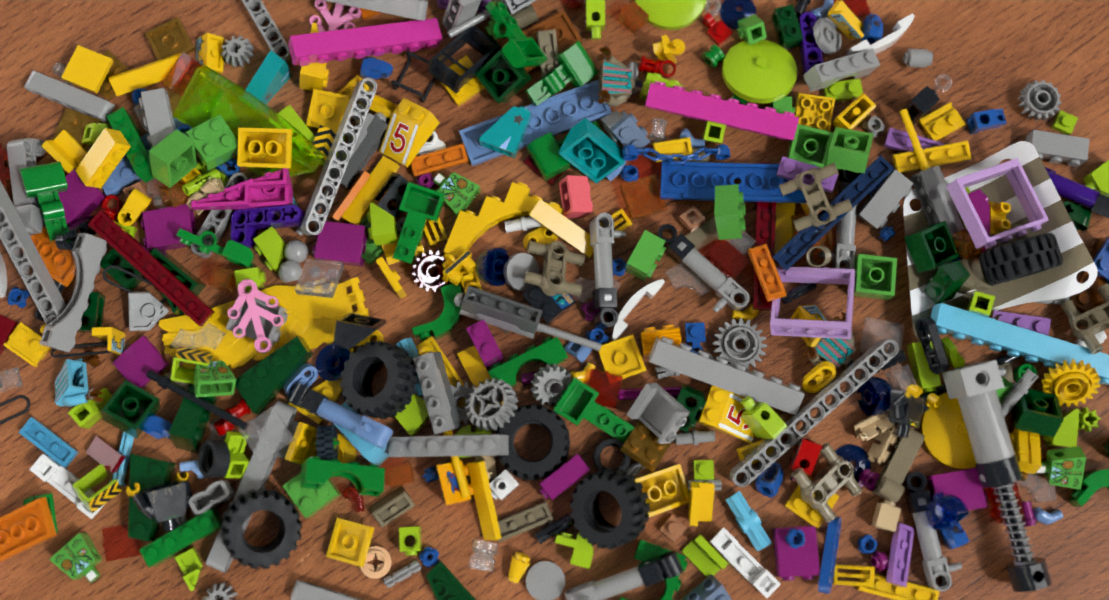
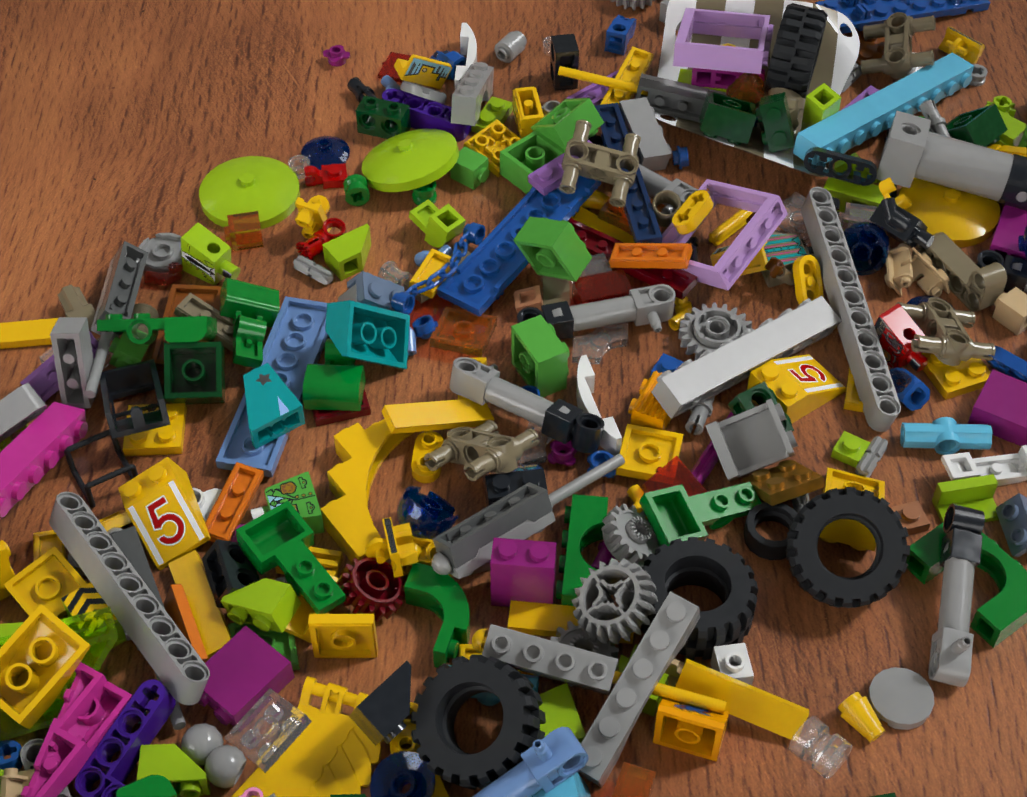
camera: 55 degrees left, 30 degrees down
(375, 68) = (40, 505): blue rock -> none
(431, 474) = (657, 753): blue plate -> none
(516, 268) = (456, 491): light grey tile -> none
(521, 224) = (394, 461): white pin -> none
(524, 521) = (799, 671): dark tan tile -> none
(554, 528) = (831, 645): black pin -> none
(564, 477) = (775, 585): magenta brick -> none
(575, 196) = (406, 385): coral brick -> none
(578, 351) = (604, 488): medium blue slope -> none
(582, 551) = (879, 625): lime brick -> none
(615, 80) = (303, 276): torso -> none
(695, 437) = (804, 432): light grey pin -> none
(700, 502) = (892, 469): yellow panel -> none
(729, 112) = (411, 212): dark pink brick -> none
(751, 29) = (358, 142): bright green brick -> none
(762, 419) = (827, 348): lime torso -> none
(800, 538) = (999, 389): blue plate -> none
(818, 277) = (692, 212): none -> yellow beam
(841, 300) = (729, 227): none -> yellow axle
(864, 476) = (960, 302): magenta plate -> none
(875, 276) = (725, 169): bright green brick -> none
(941, 122) = (595, 61): yellow plate -> none
(1071, 382) = (953, 90): yellow gear -> none

